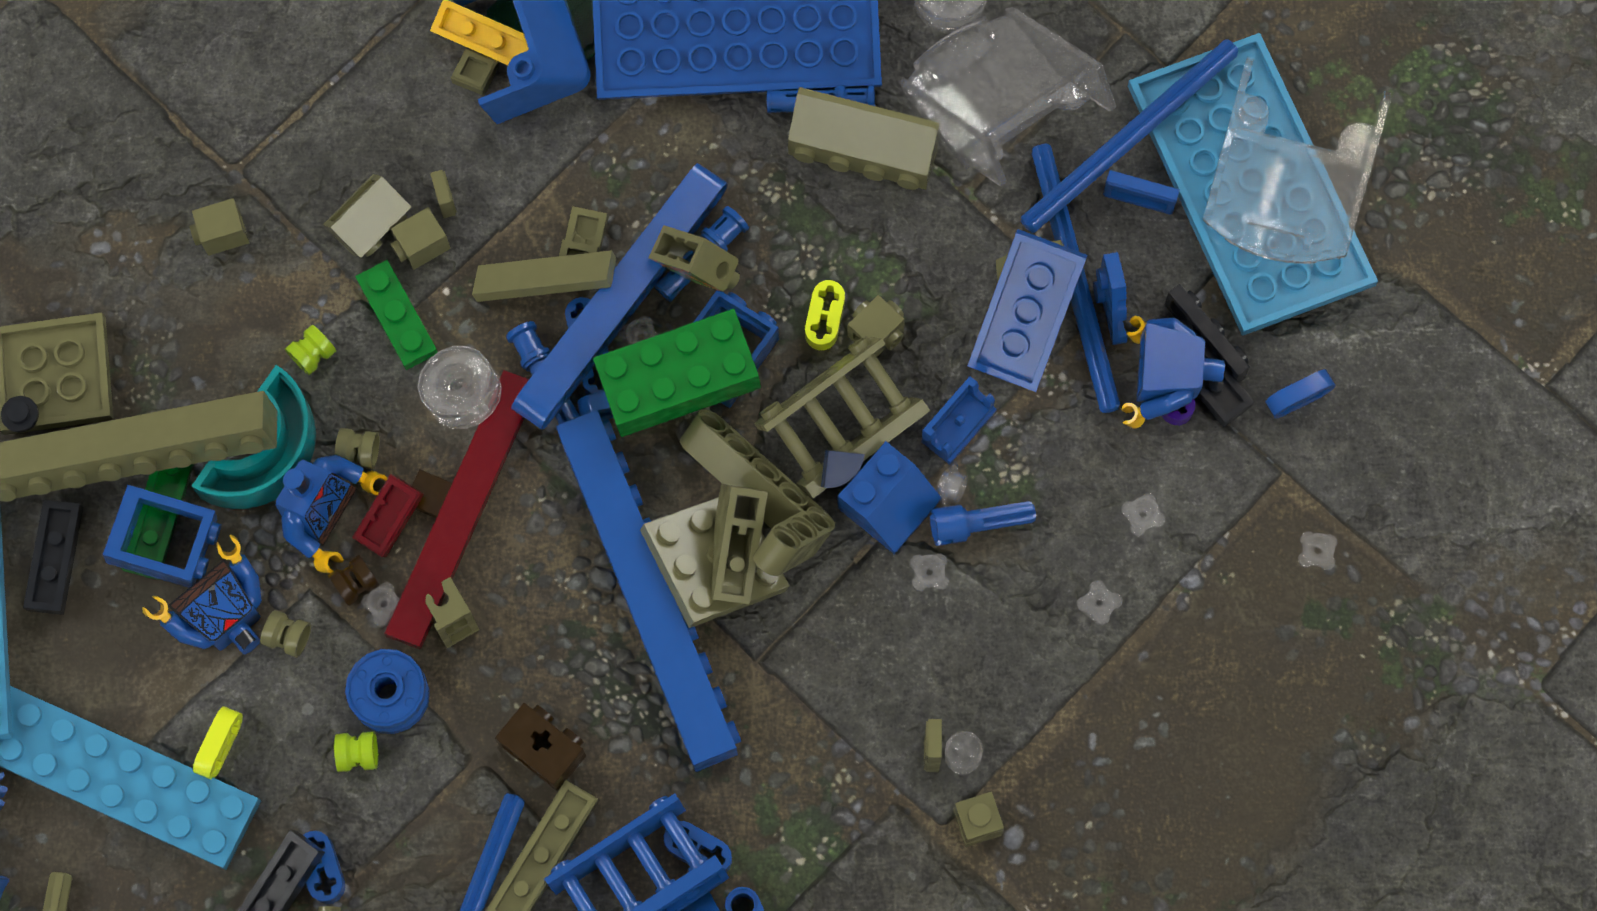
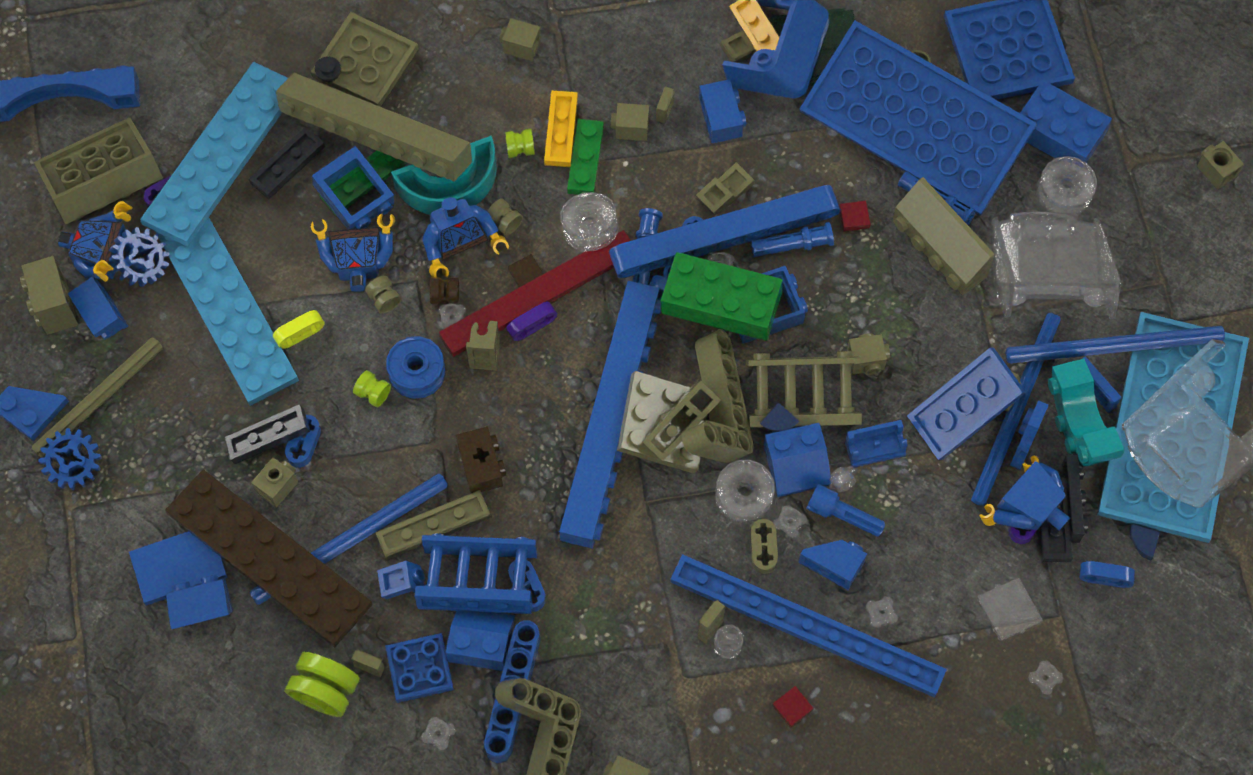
camera: 35 degrees right, 5 degrees down
(344, 300) = (561, 128): none -> yellow plate
(367, 216) = (610, 88): brick -> none
(388, 515) = (492, 267): dark red plate -> none
(479, 546) = (531, 321): none -> dark purple beam
(512, 158) = (721, 111): none -> blue brick
(544, 276) = (687, 190): olive tile -> none
(709, 265) = (784, 239): olive torso -> none
(746, 179) = (854, 216): none -> dark red tile
(832, 316) = (837, 322): neon yellow beam -> none
(862, 551) = (749, 475): none -> clear wheel
(915, 625) = (770, 546): none -> olive beam
(978, 819) = (706, 686): olive brick -> none
(1013, 581) = (835, 561): none -> blue slope
(1032, 674) = (808, 626): none -> blue plate
(1082, 774) = (792, 707): none -> dark red tile
(1146, 504) = (957, 575): clear plate -> none
(1153, 243) = (1080, 417): none -> teal brick
(1226, 503) = (1009, 609): none -> clear piece
(1310, 329) = (1144, 540): none -> dark blue tile

